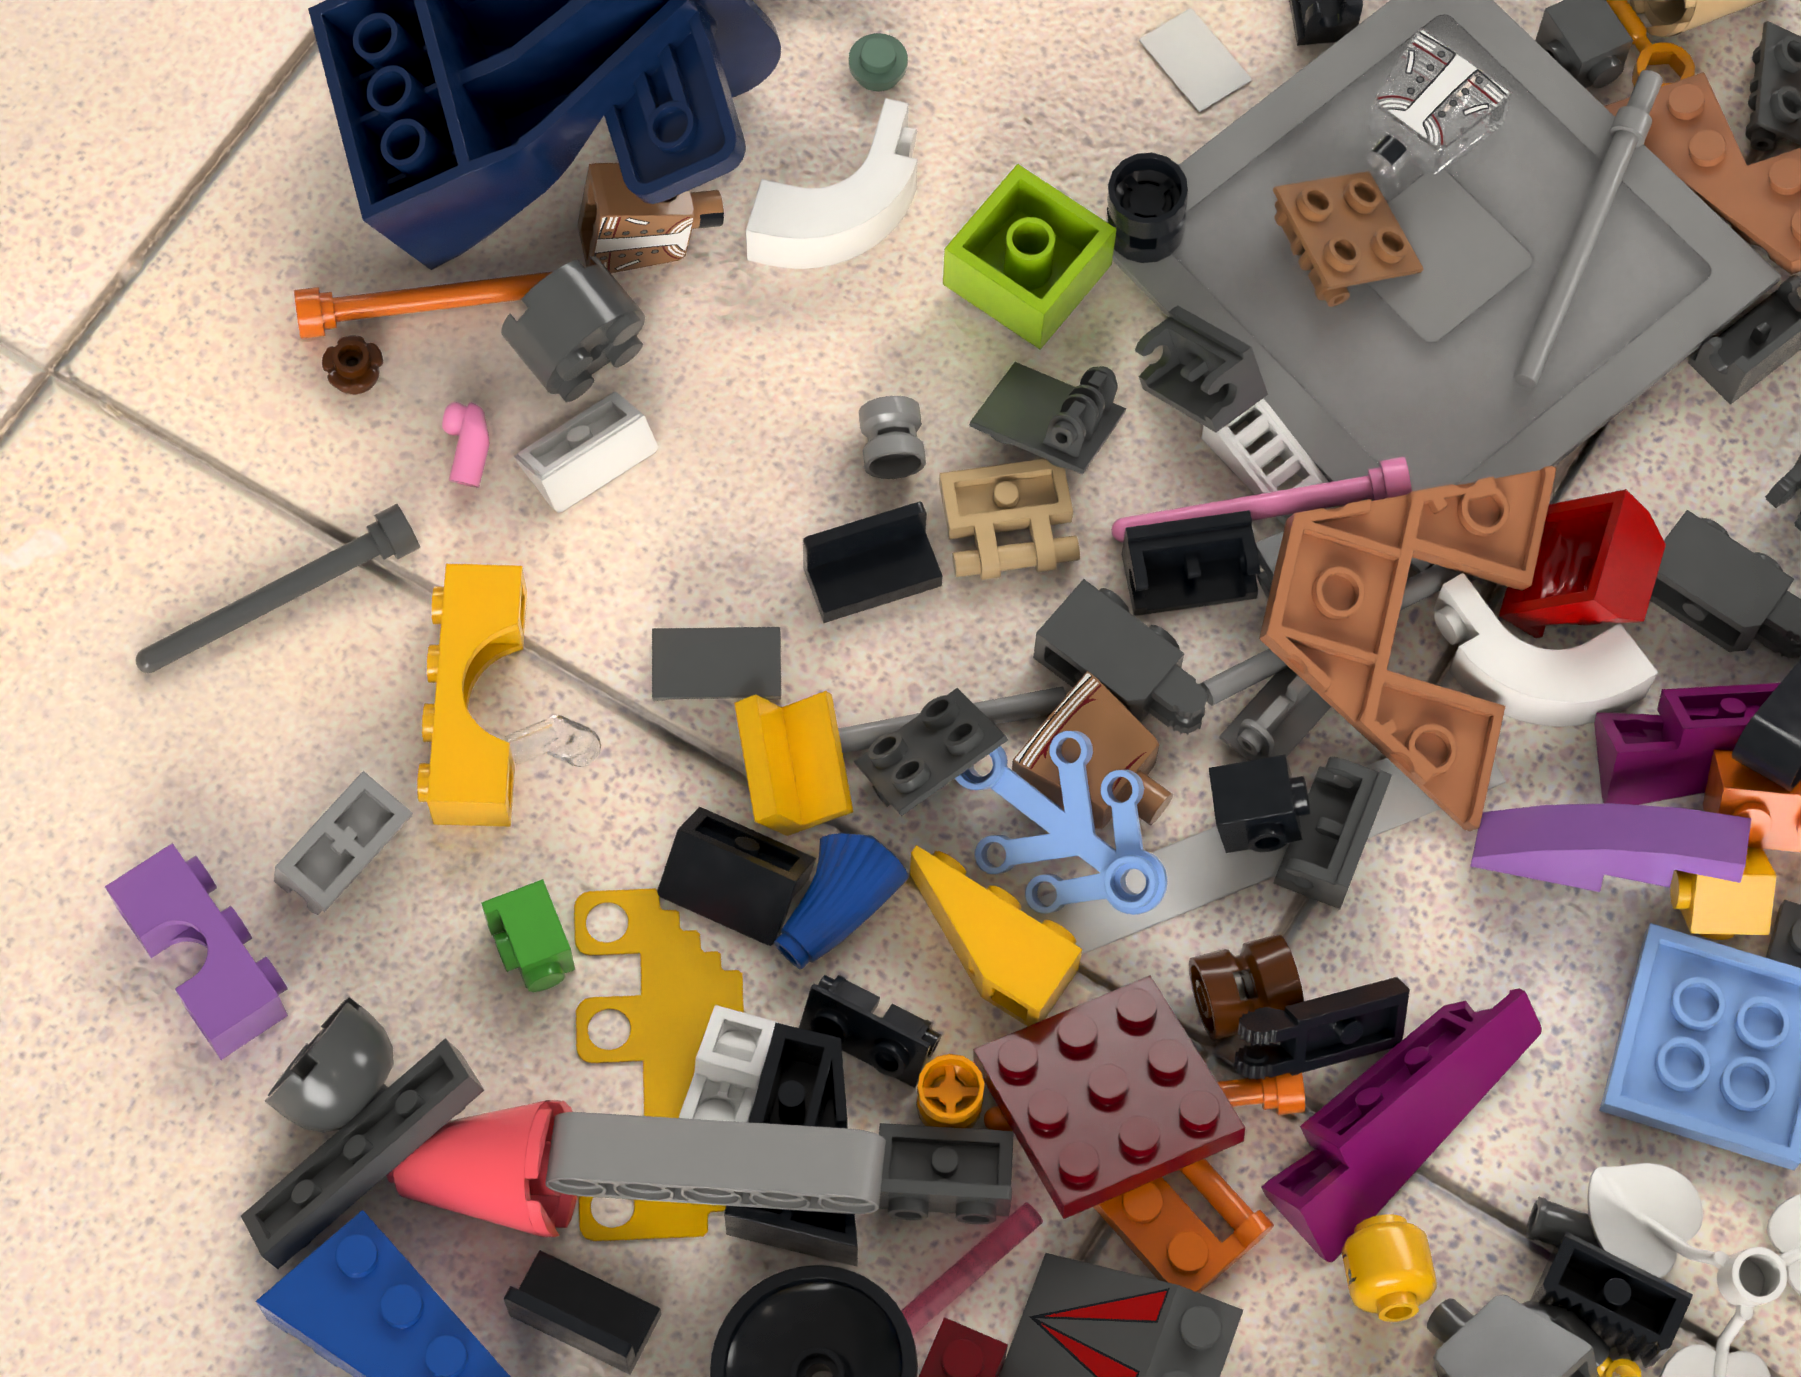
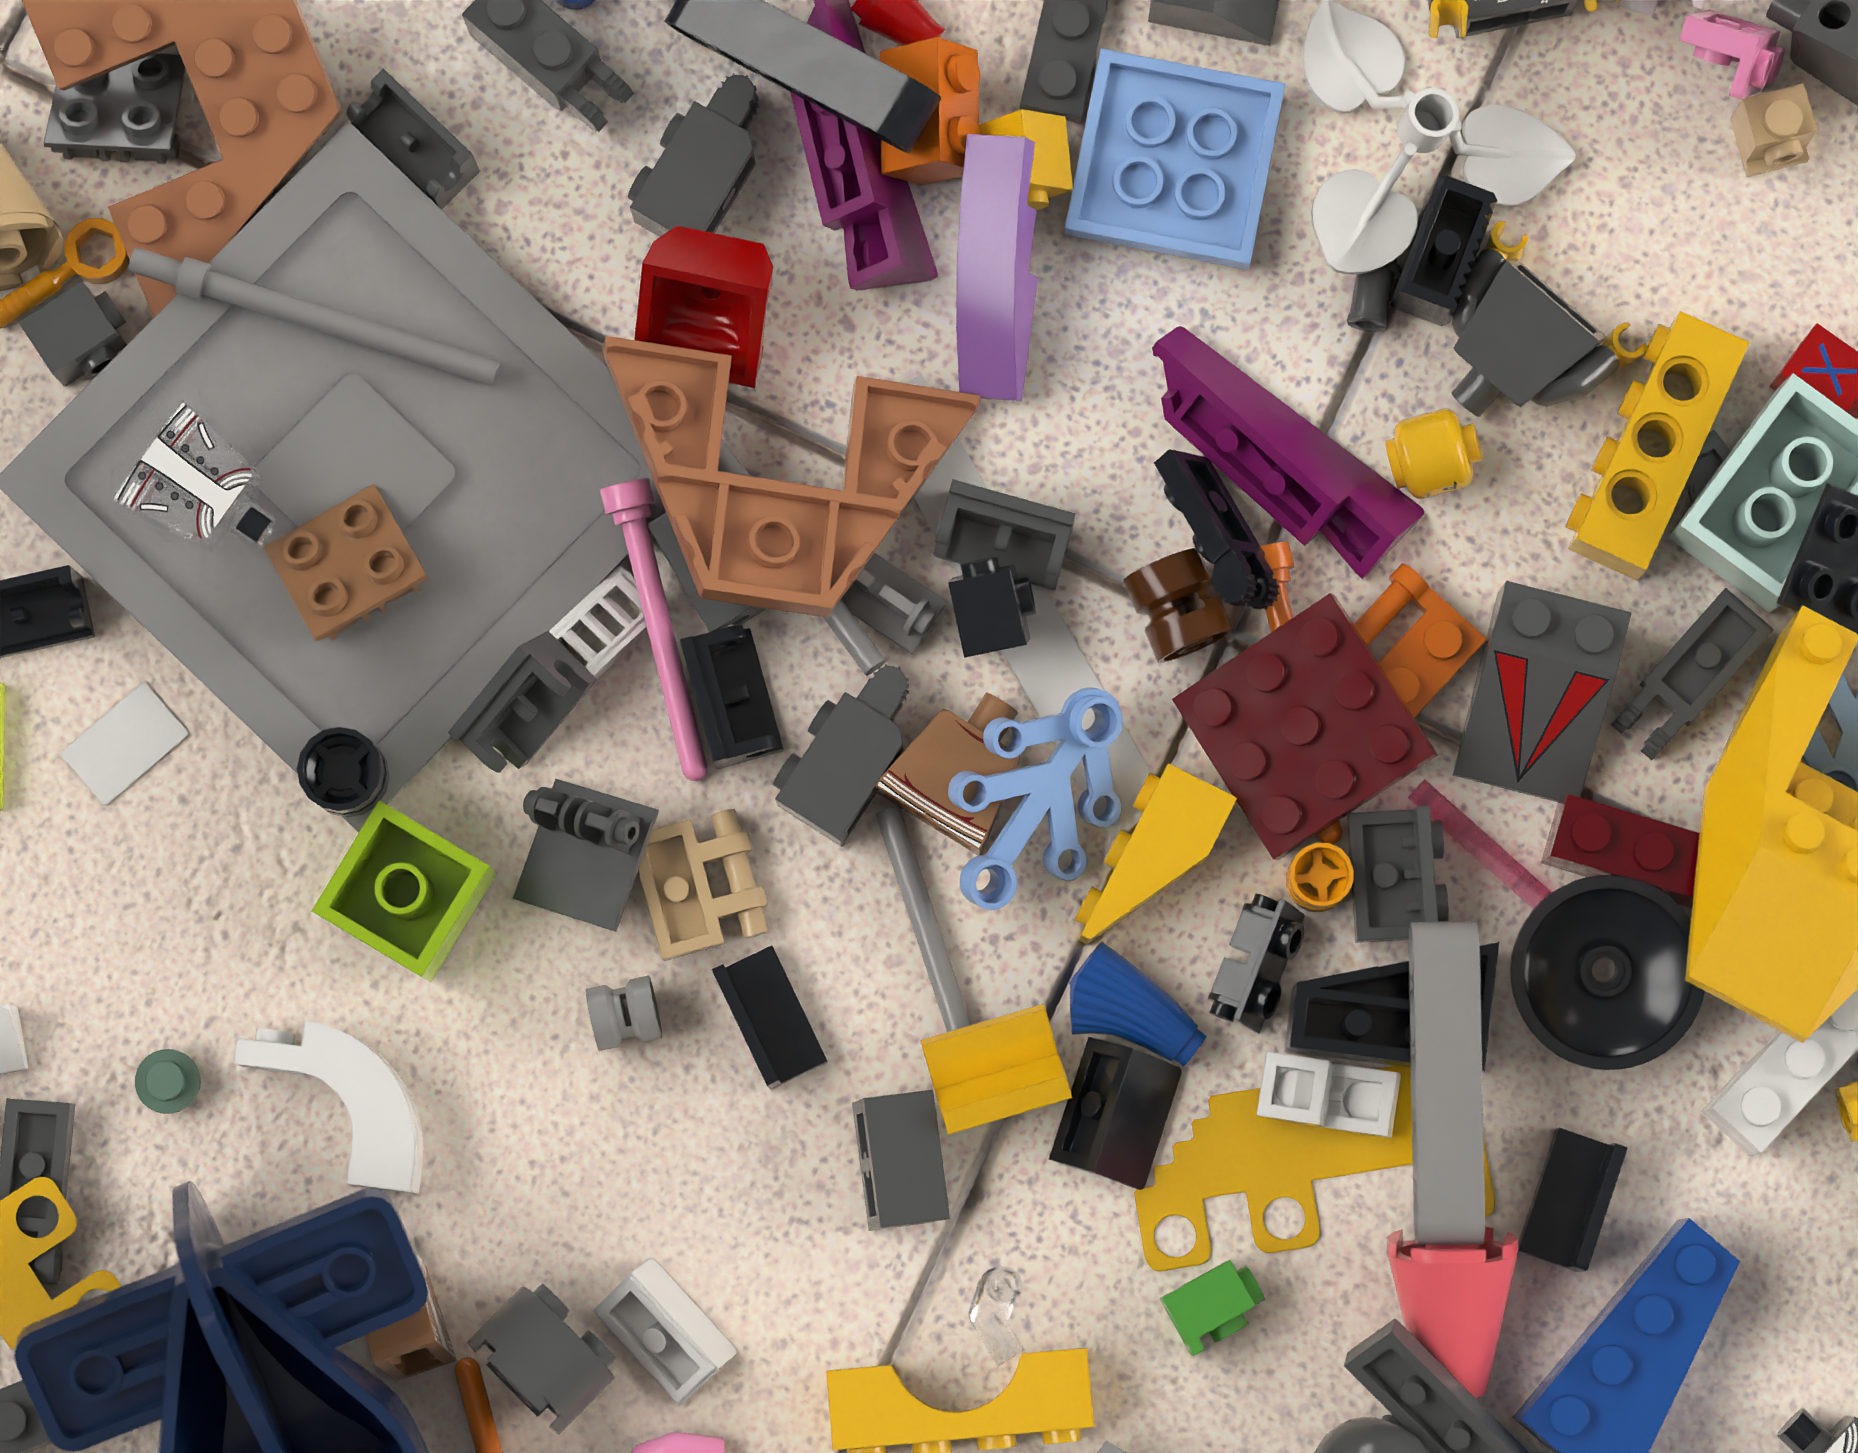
camera: 90 degrees left, 15 degrees up
(929, 751) = (982, 931): dark grey hinge -> none
(1537, 682) = (820, 303): white arch -> none

